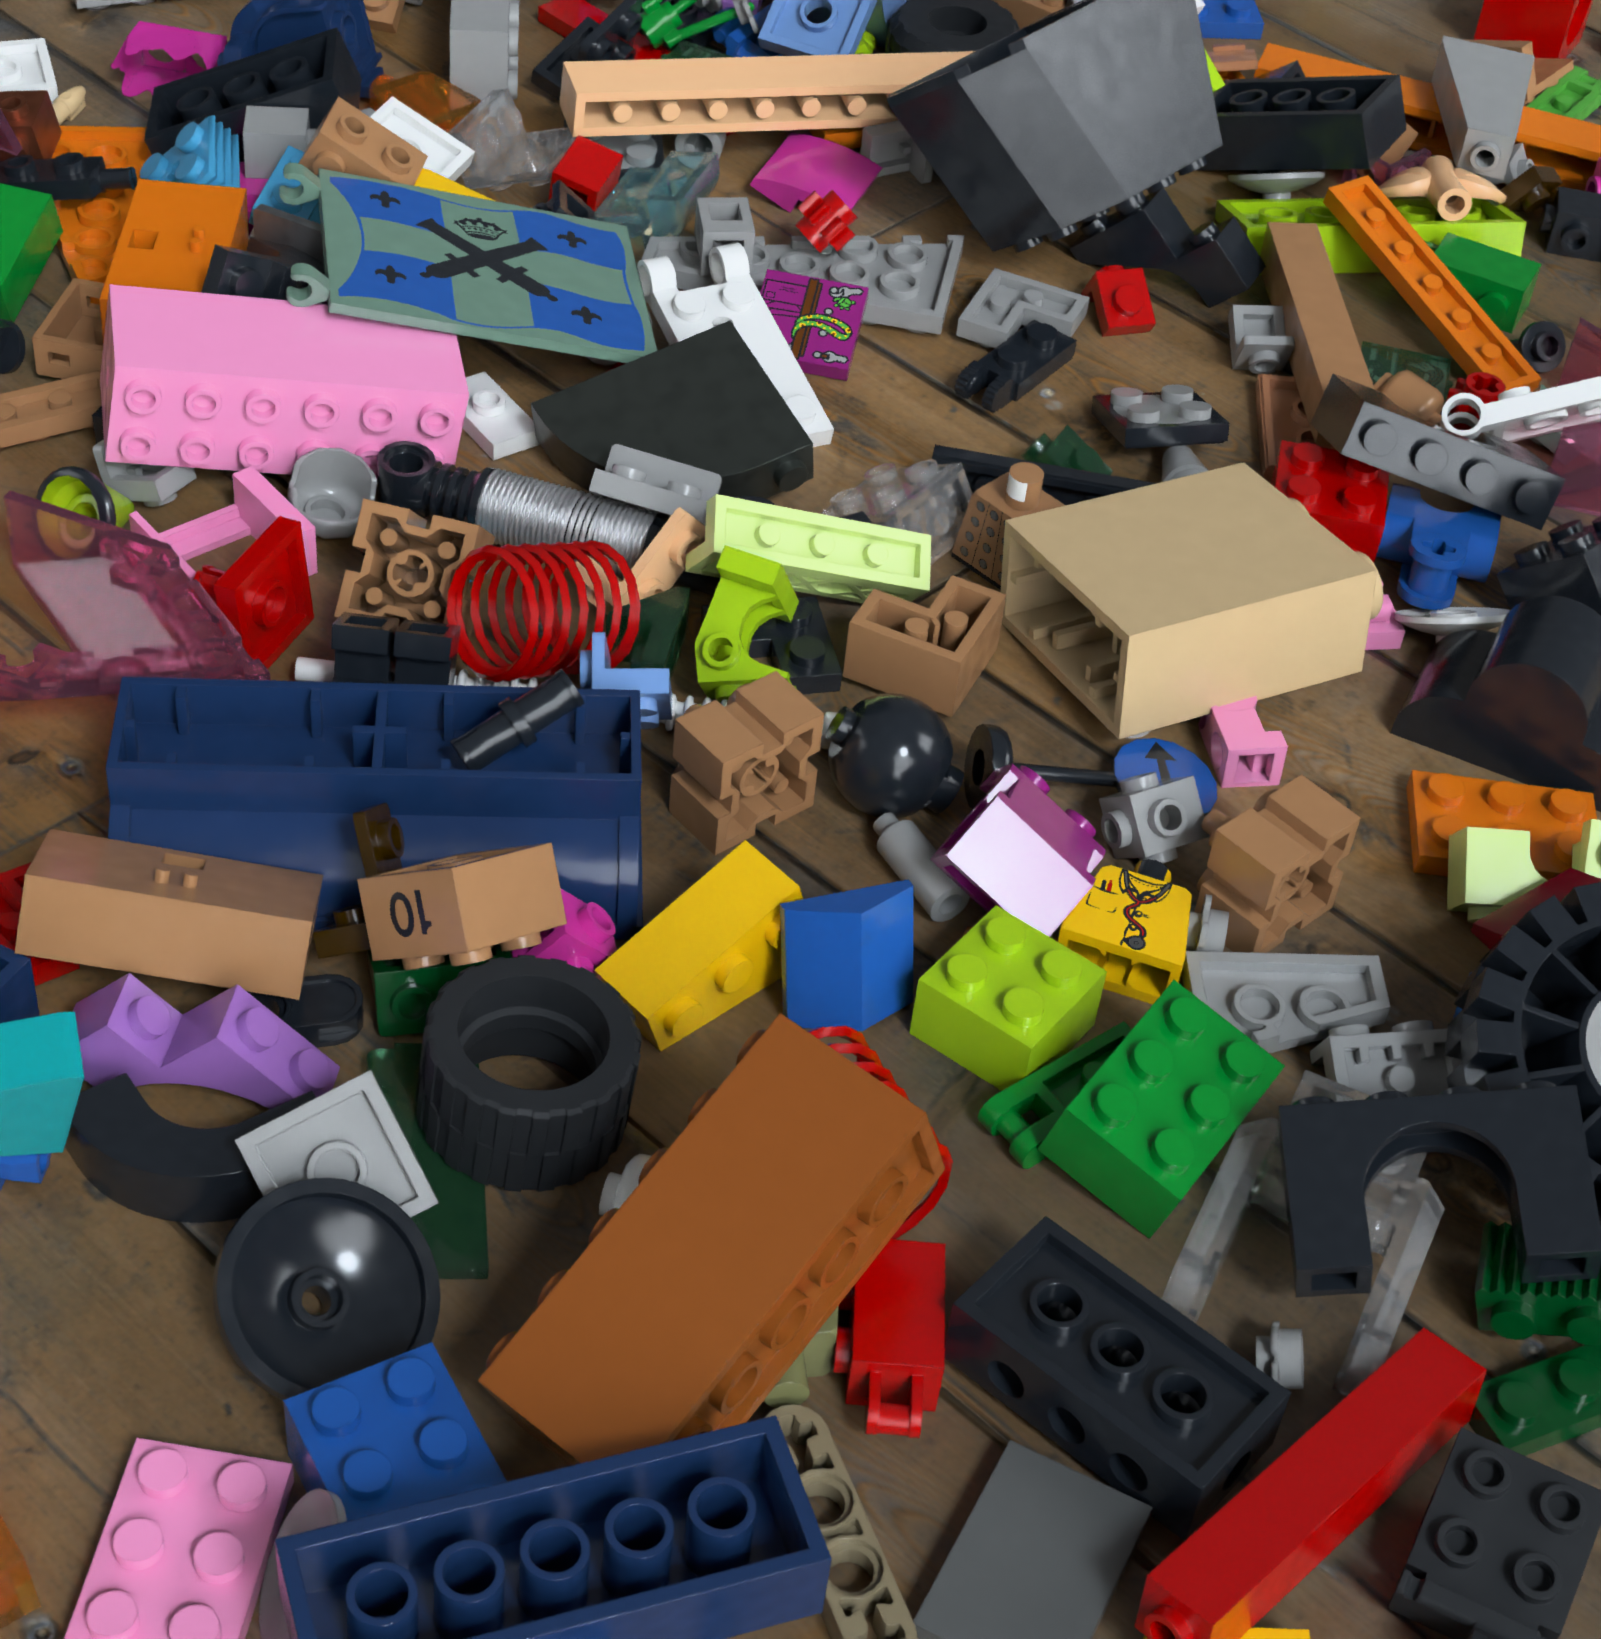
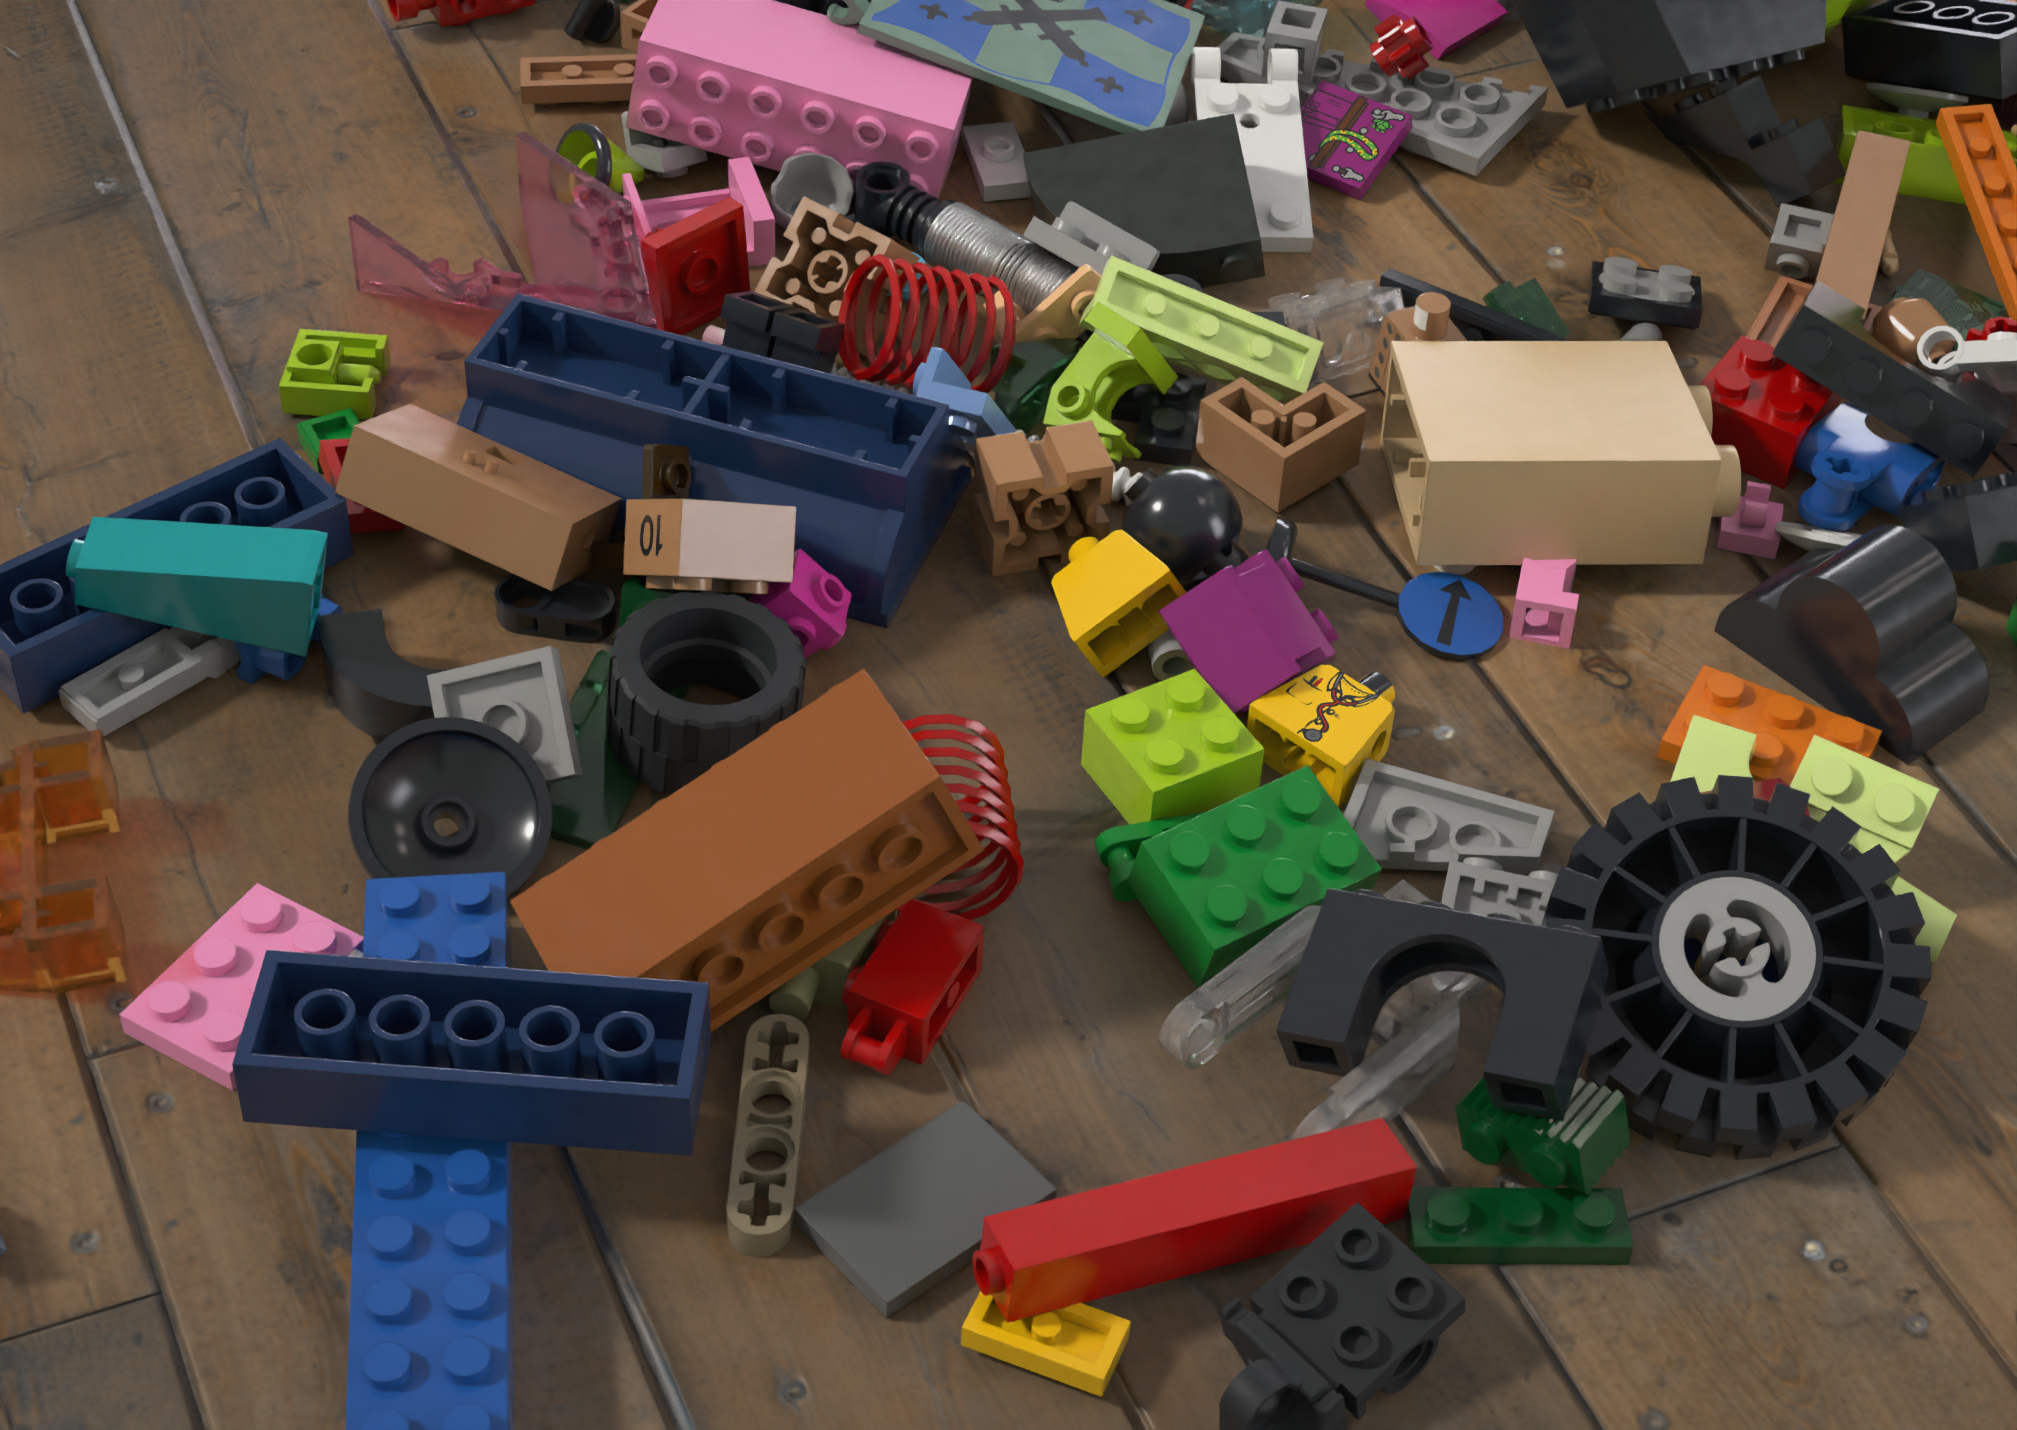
camera: 25 degrees right, 0 degrees up
(219, 1045) = (473, 610): medium lavender arch -> none
(517, 721) = (827, 405): black pin -> none
(704, 948) = (931, 639): yellow wedge -> none
(848, 956) = (1038, 676): blue slope -> none
(870, 836) = (1114, 598): none -> yellow torso
(1013, 301) = (1565, 158): light grey plate -> none
(1016, 365) = (1533, 219): black hinge -> none
(1115, 1375) = (1073, 1065): black brick -> none
(1121, 300) = (1675, 179): red bracket -> none
(1152, 817) = (1424, 635): light grey brick -> none
(1207, 929) = (1400, 745): light grey plate -> none
(1276, 863) = (1490, 706): medium nougat brick -> none
(1282, 1356) = (1250, 1112): light grey plate -> none

